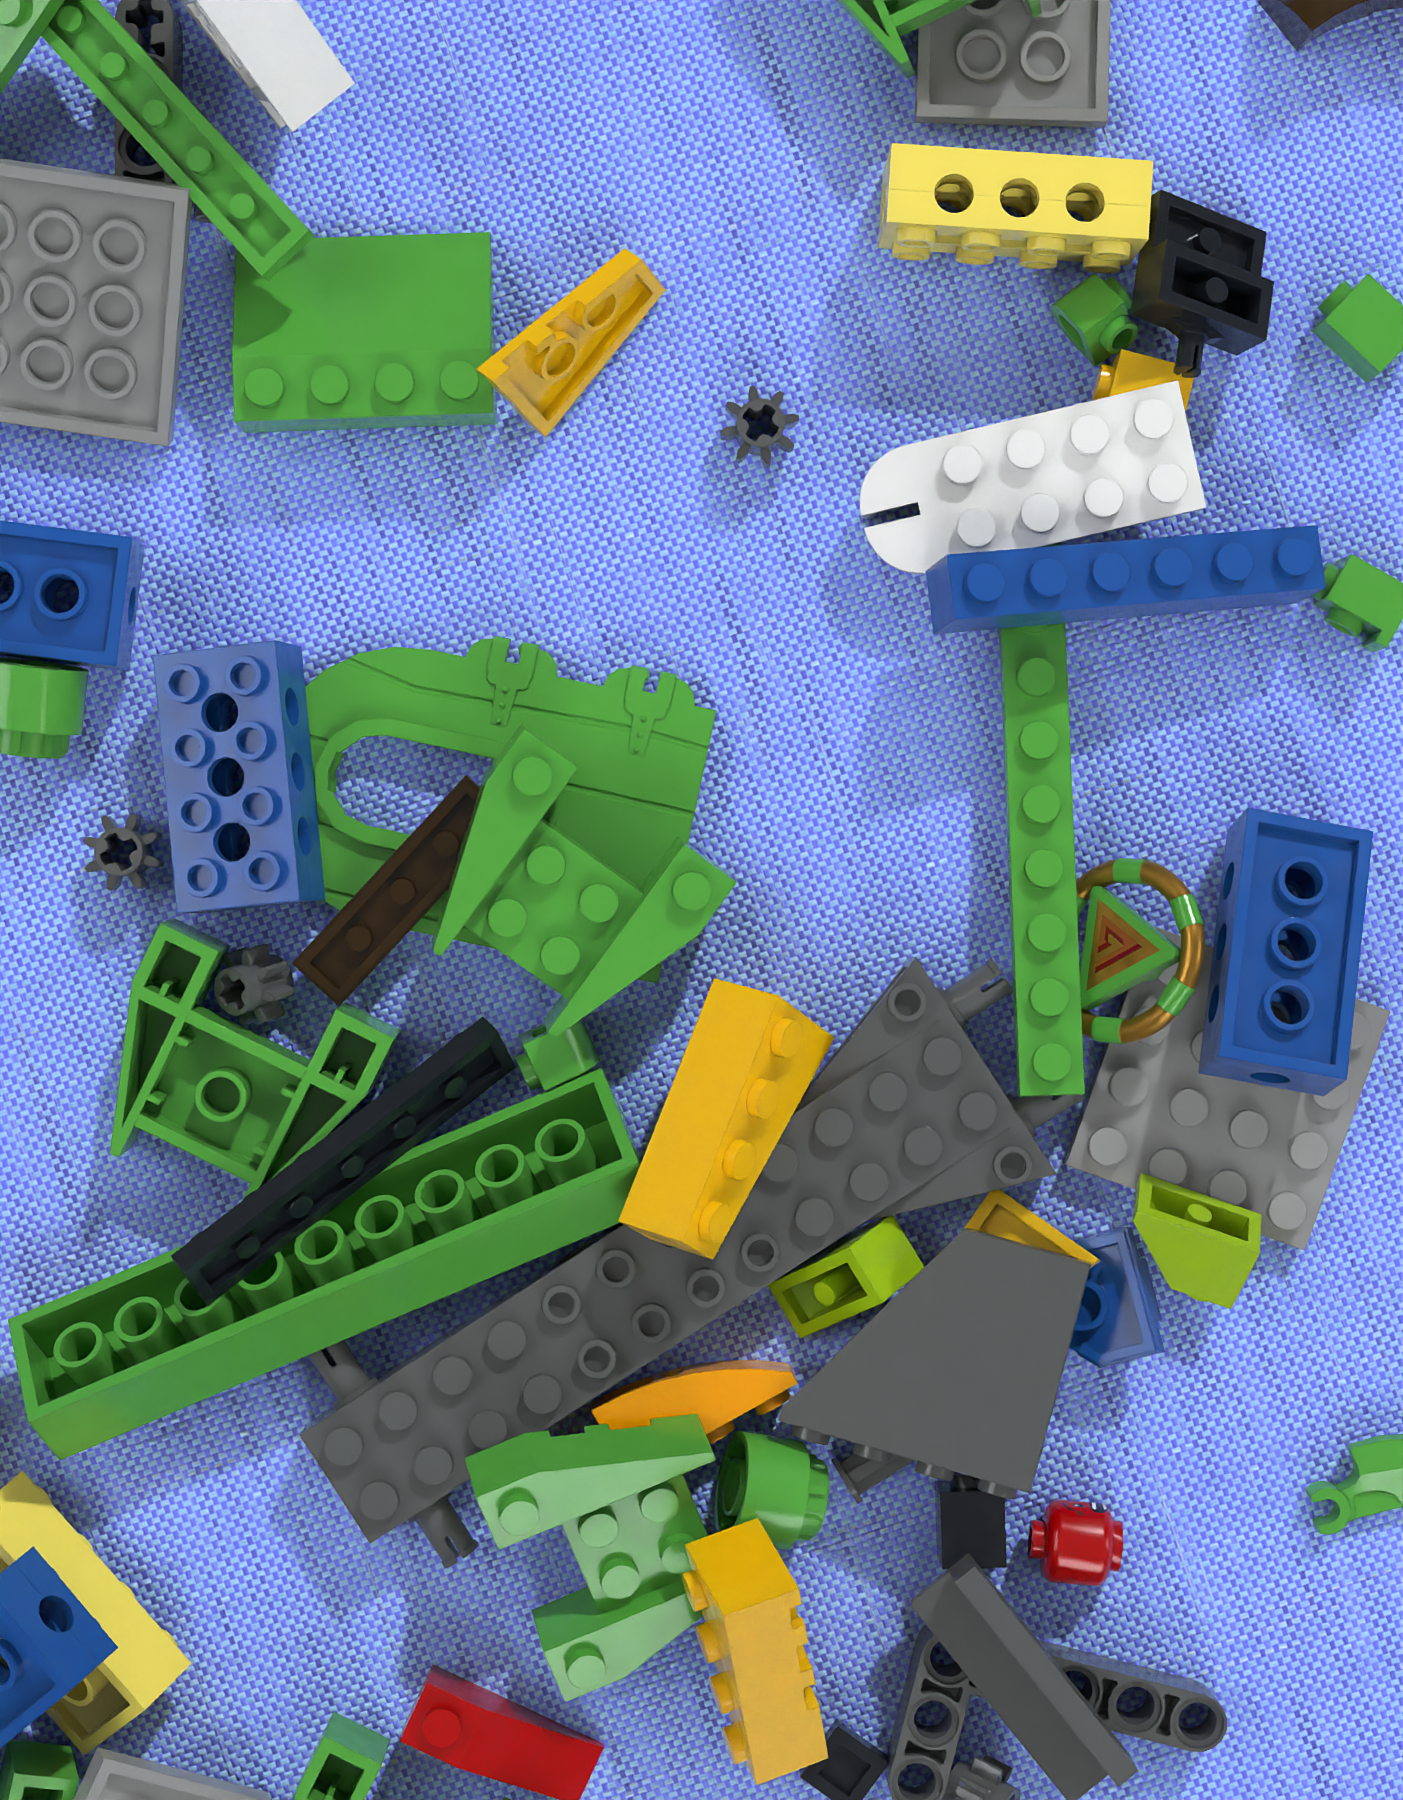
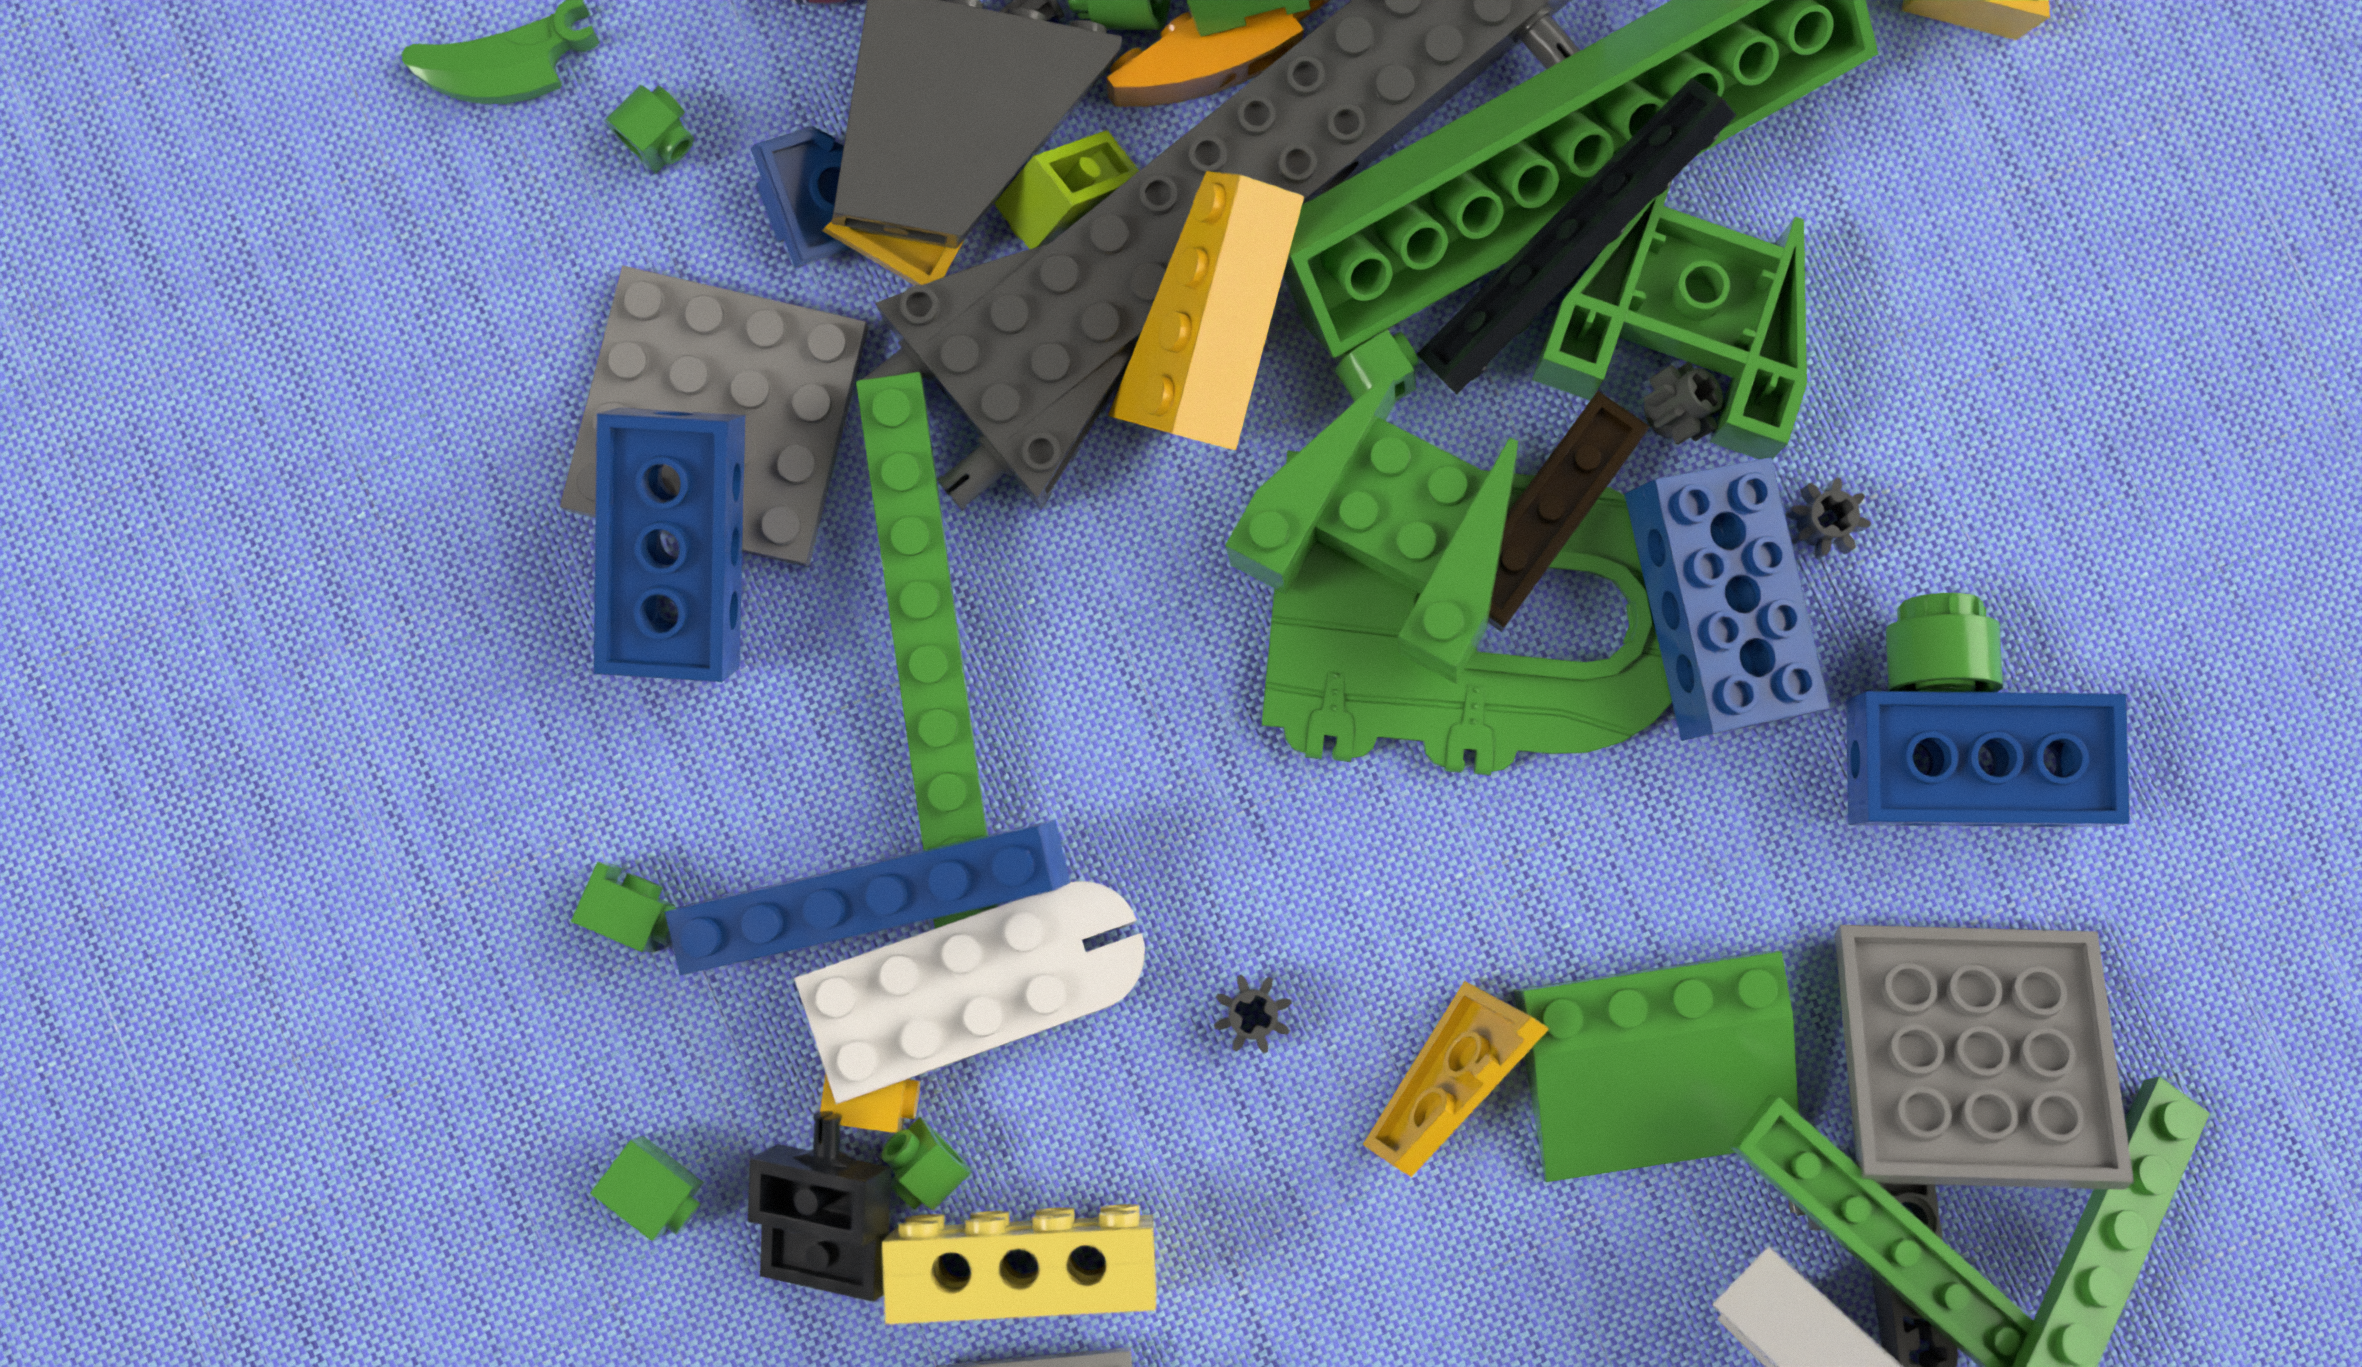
camera: 170 degrees right, 5 degrees down
(1128, 950) = (827, 528): piece -> none
(1197, 1240) = (729, 260): lime slope -> none
(1262, 1389) = (651, 127): none -> bright green plate

